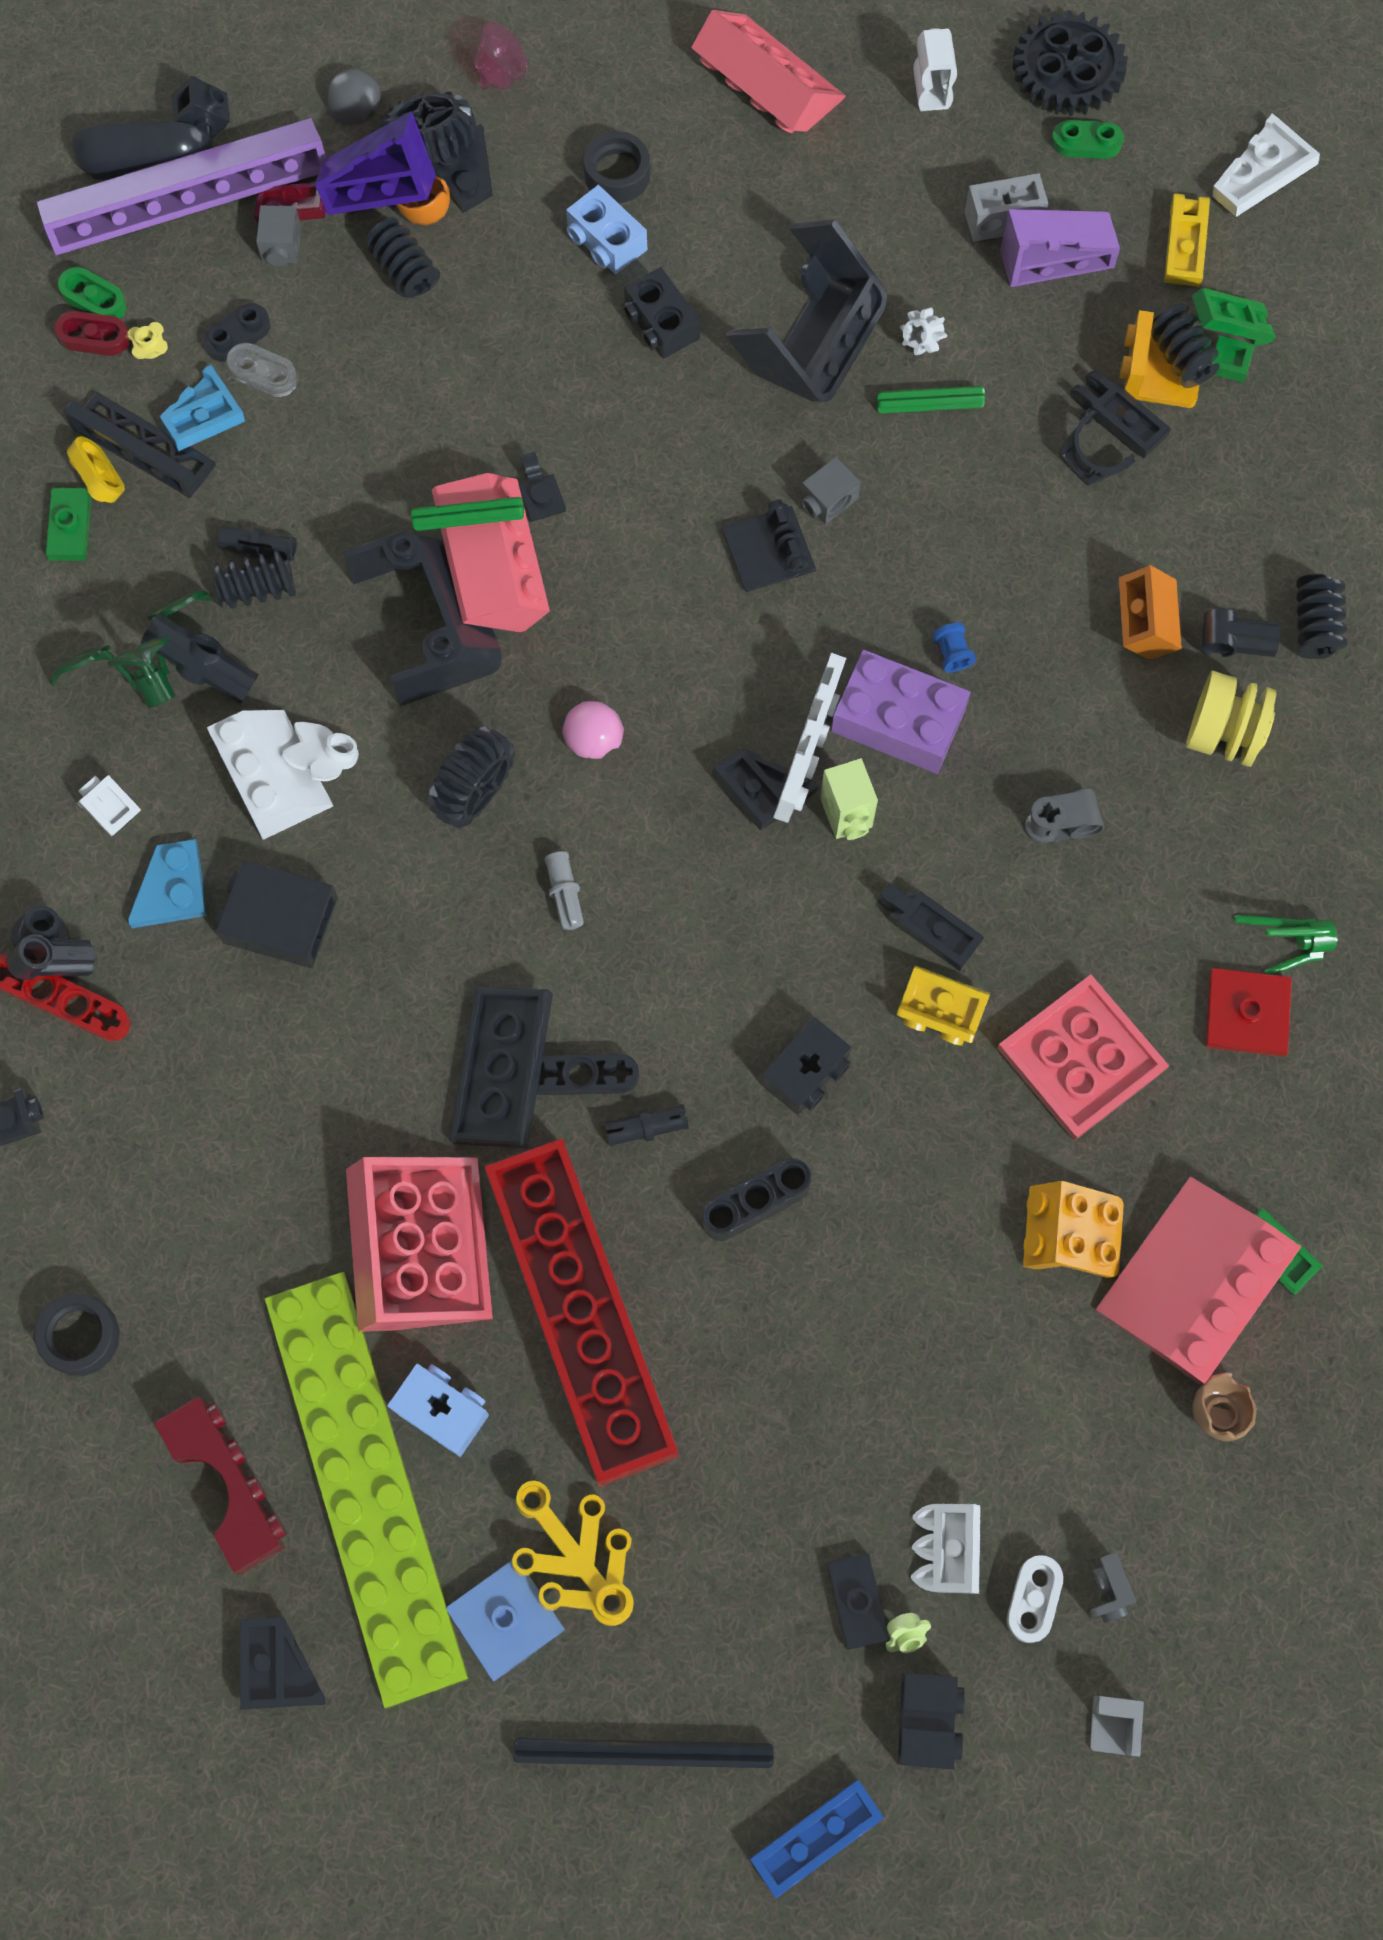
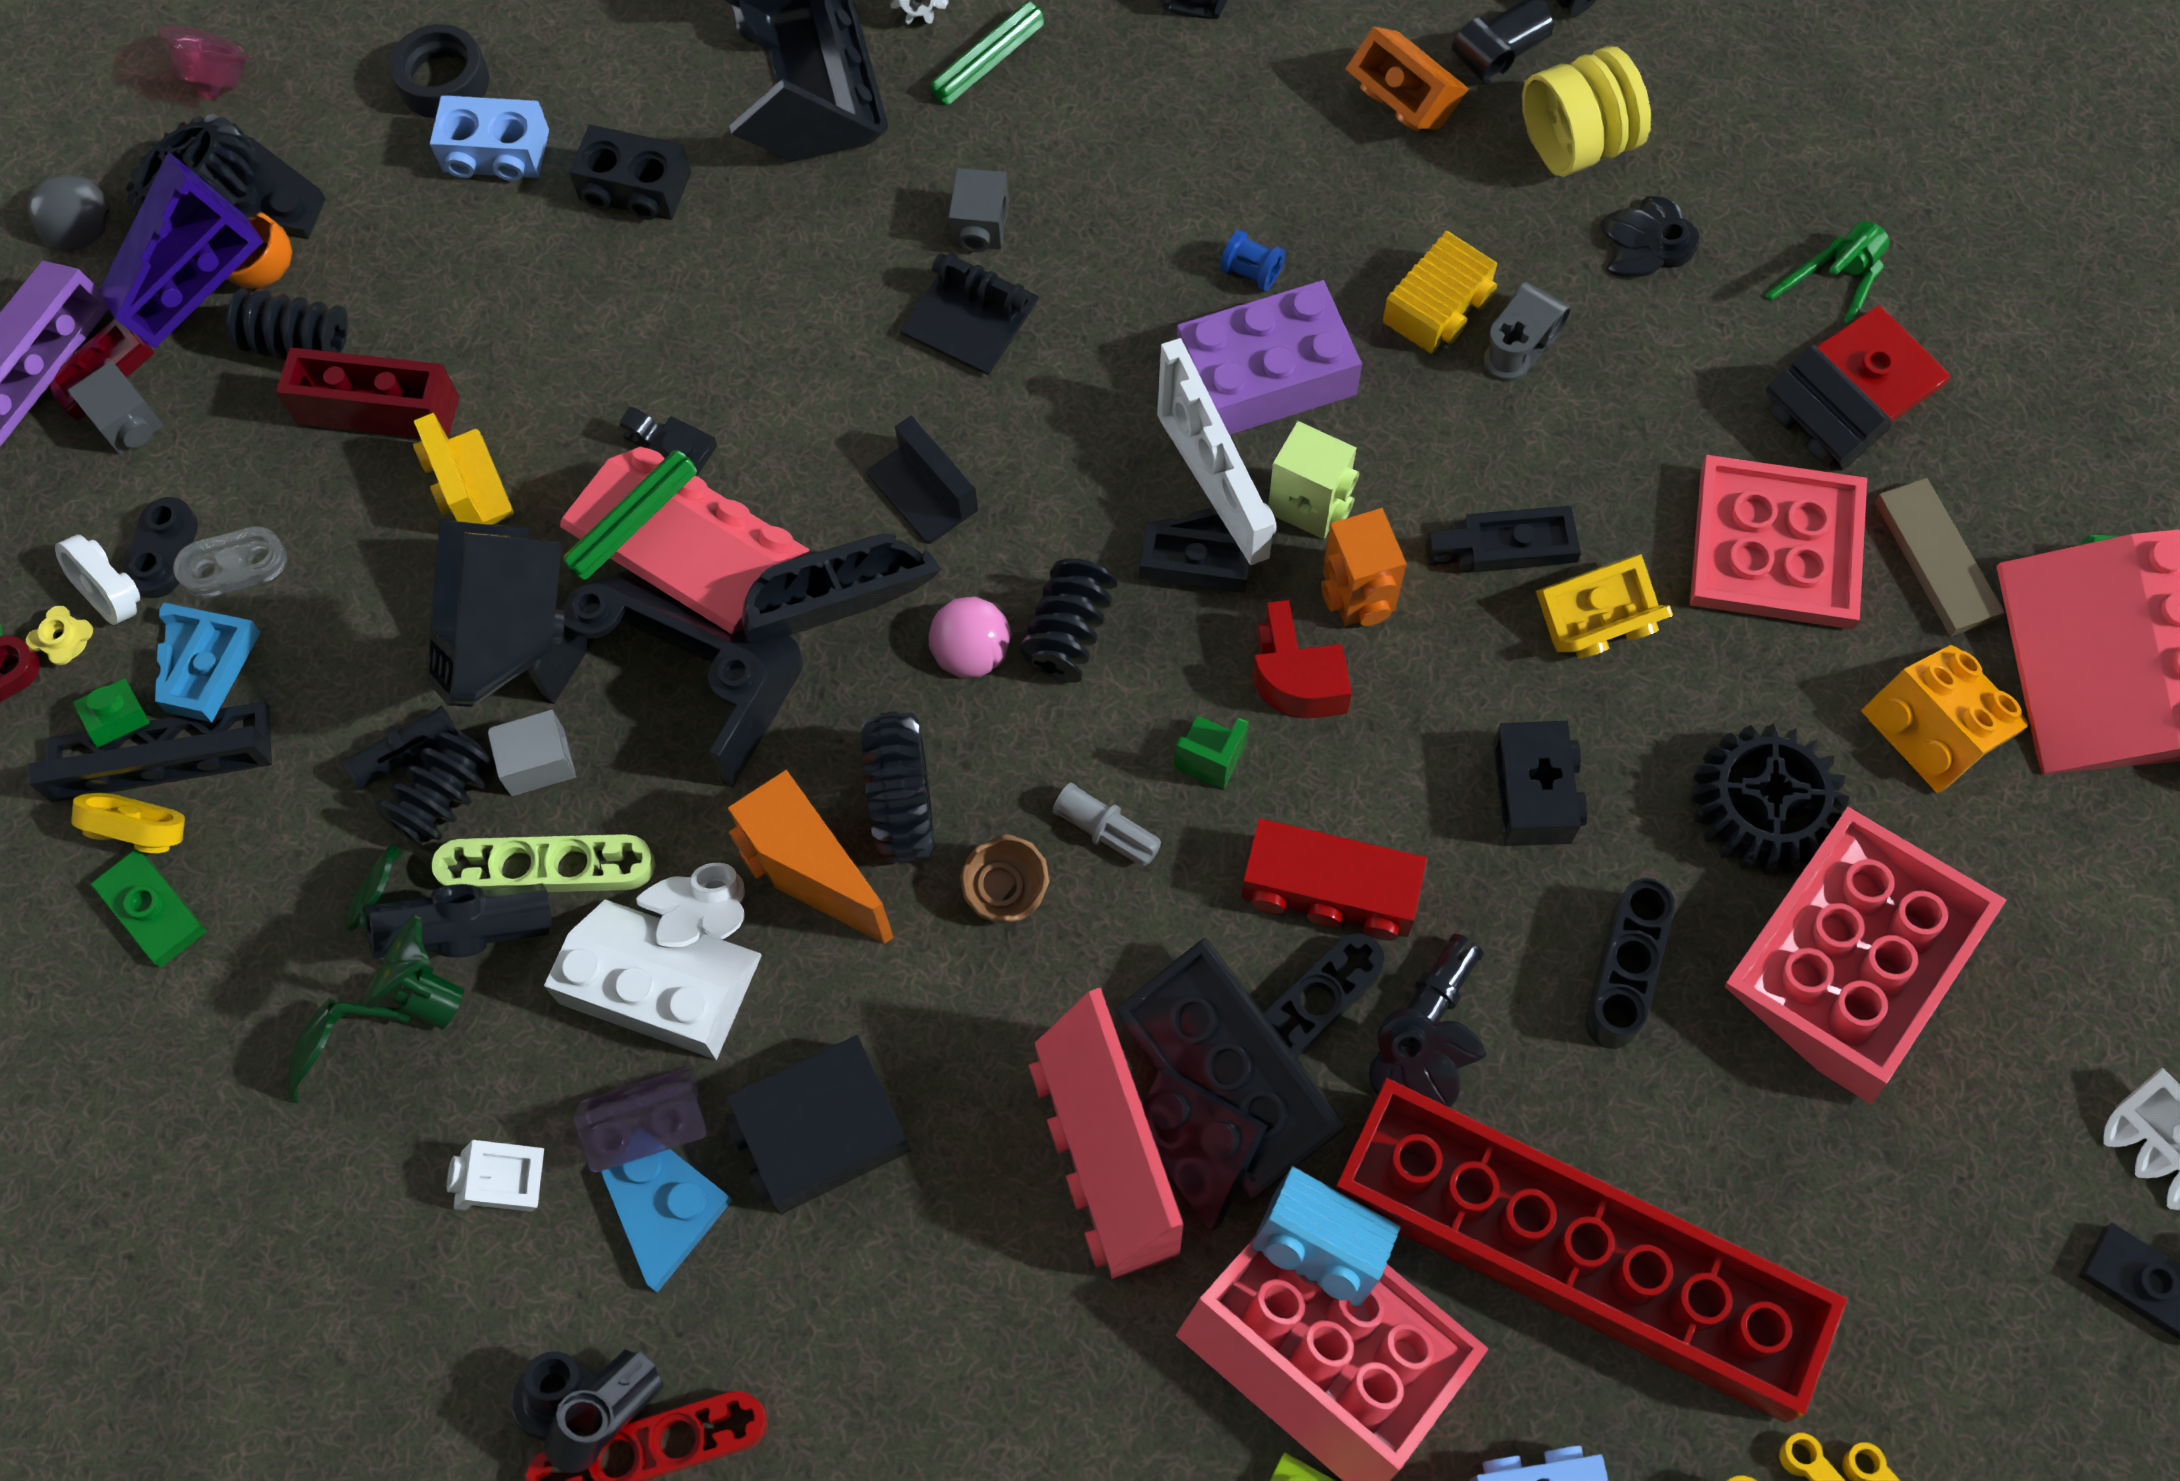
camera: 40 degrees left, 5 degrees down
(136, 404) = (110, 712): none -> green plate
(190, 314) = (93, 576): none -> white plate
(196, 835) = (640, 1119): none -> clear purple bracket
(271, 665) = (545, 858): none -> yellowish green beam
(315, 601) = (531, 753): none -> light grey panel
(351, 504) = (490, 608): none -> black windscreen
(394, 759) = (801, 857): none -> orange slope
(402, 1046) = (1107, 1140): none -> coral slope
(407, 332) = (365, 392): none -> dark red brick
(416, 418) = (464, 472): none -> yellow bracket
(449, 1089) = (1201, 1143): none -> black wing
(458, 1187) = (1326, 1237): none -> medium azure brick
(478, 865) = (994, 870): none -> medium nougat hair
(538, 640) = (833, 586): none -> black brick
(599, 1150) = (1430, 1061): none -> black plate
(648, 625) = (924, 483): none -> black panel
(648, 763) = (1066, 618): none -> black piece
(648, 1021) = (1333, 879): none -> red brick
(656, 899) = (1211, 750): none -> green panel
(736, 899) = (1297, 680): none -> red brick
(825, 870) = (1362, 569): none -> orange brick
(881, 1303) = (1863, 952): none -> coral slope
(935, 1199) = (1724, 801): none -> black gear
(1040, 755) = (1440, 292): none -> yellow brick
(1167, 1145) = (1939, 557): none -> dark tan tile
(1187, 1008) = (1826, 408): none -> black brick
(1197, 819) = (1647, 237): none -> black plate

